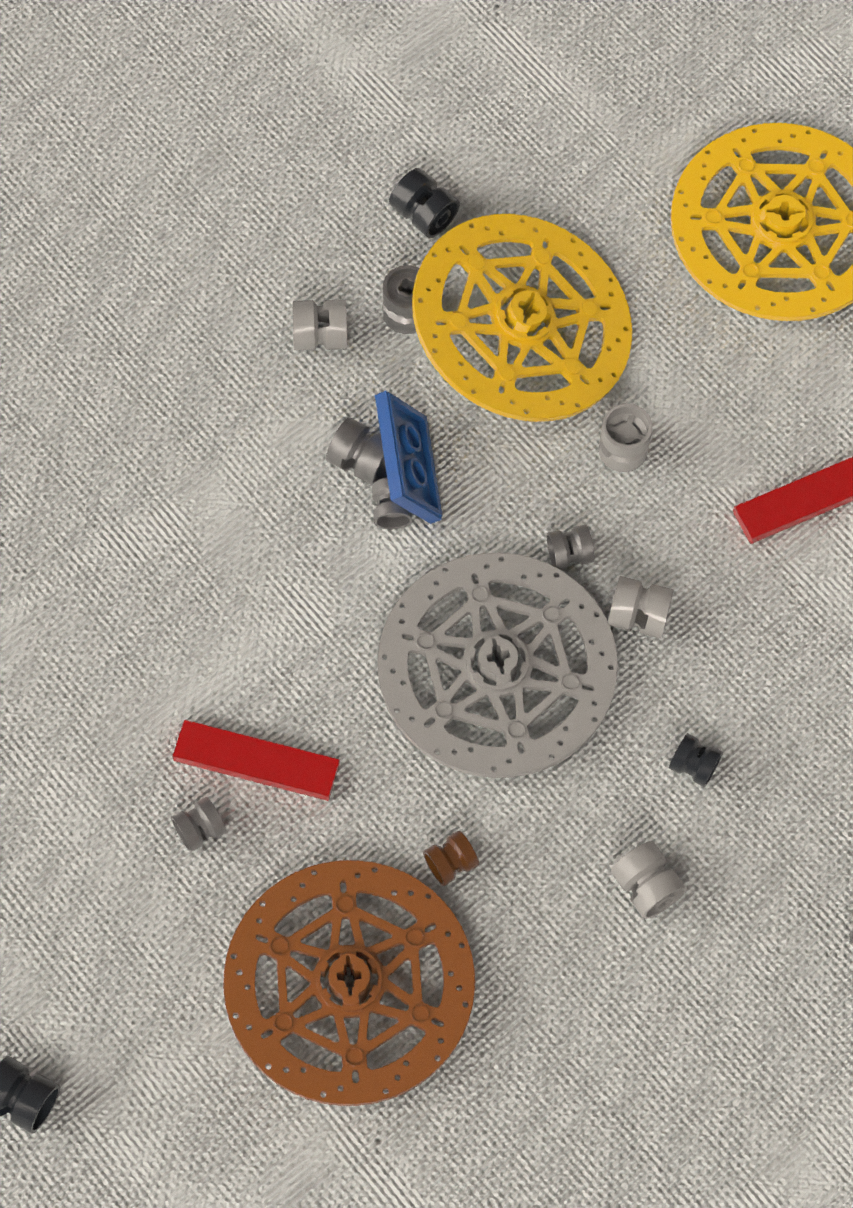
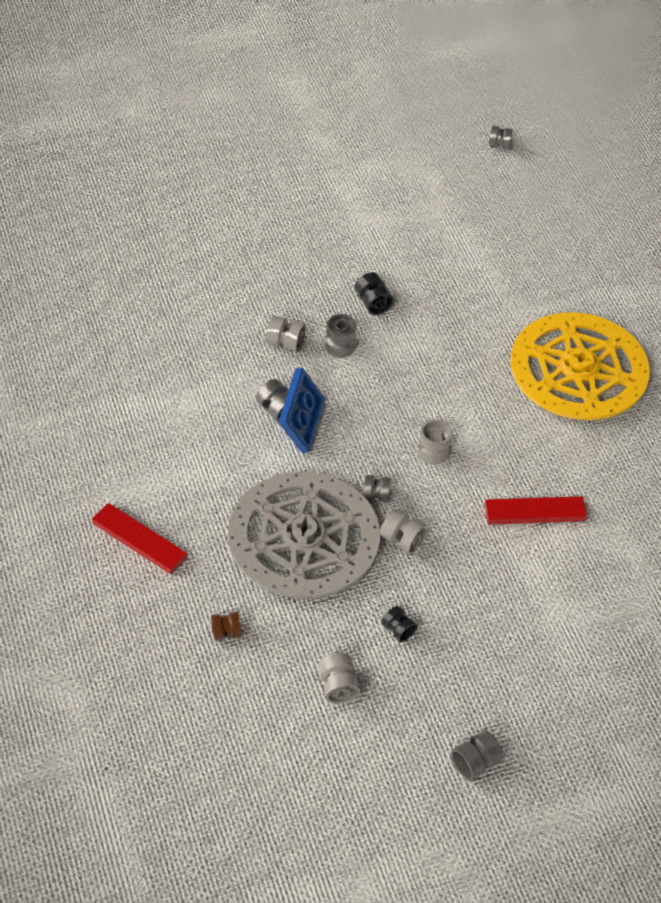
camera: 20 degrees right, 15 degrees down
(198, 824) = (93, 554): flat silver wheel -> none
(282, 1024) = (131, 672): dark orange piece -> none
(387, 513) = (278, 437): flat silver wheel -> none
(522, 317) = (402, 363): yellow piece -> none

